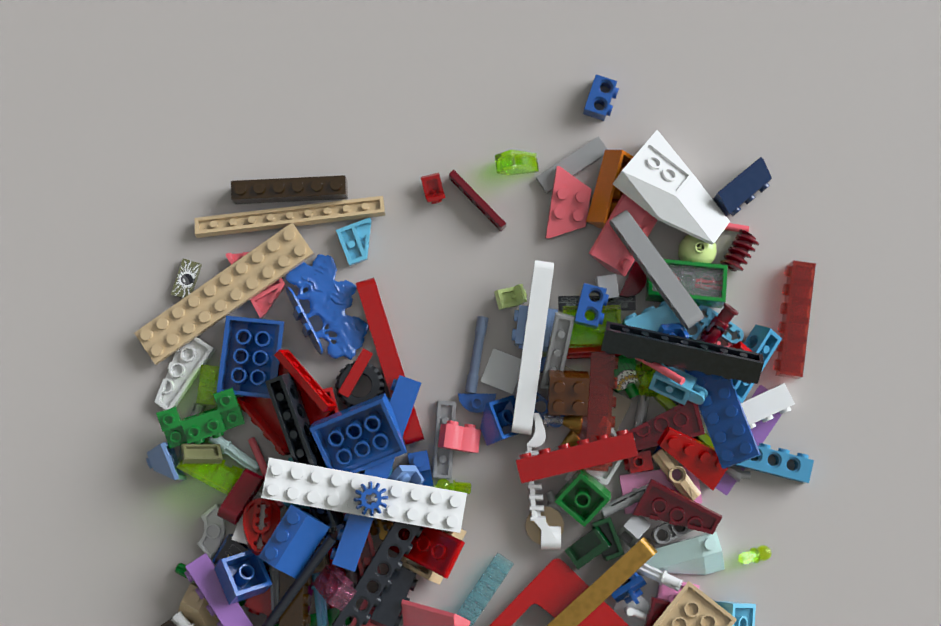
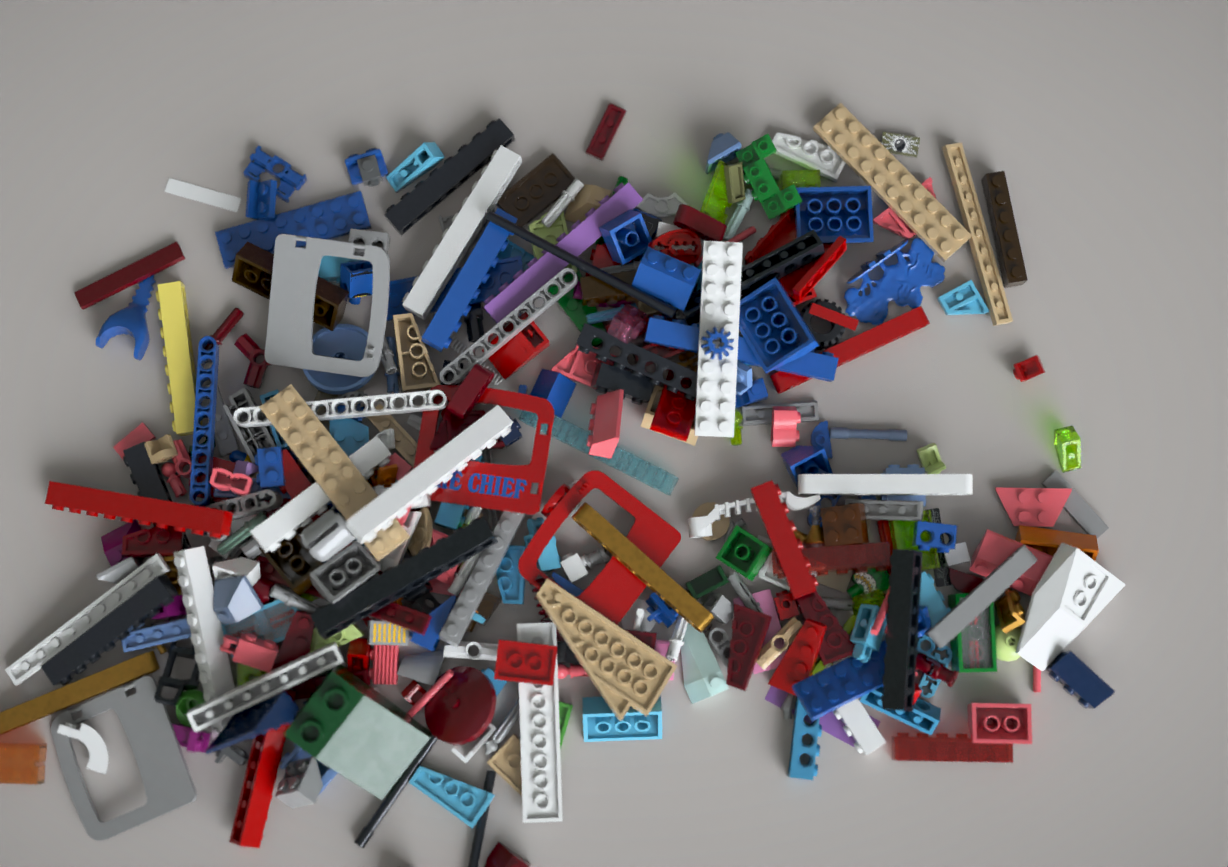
camera: 80 degrees right, 0 degrees up
(125, 579) = (606, 131): none -> dark red tile
(468, 191) = (1023, 413): dark red tile -> none
(502, 371) = (855, 459): white sticker -> none
(588, 547) = (695, 565): dark green panel -> none
(596, 96) = (1149, 522): blue brick -> none
(671, 243) = (1010, 611): none -> pearl gold bracket
(739, 251) = (1013, 685): dark red piece -> none
(755, 555) = (713, 740): clear neon green axle -> none
(777, 269) = (1000, 723): none -> coral slope

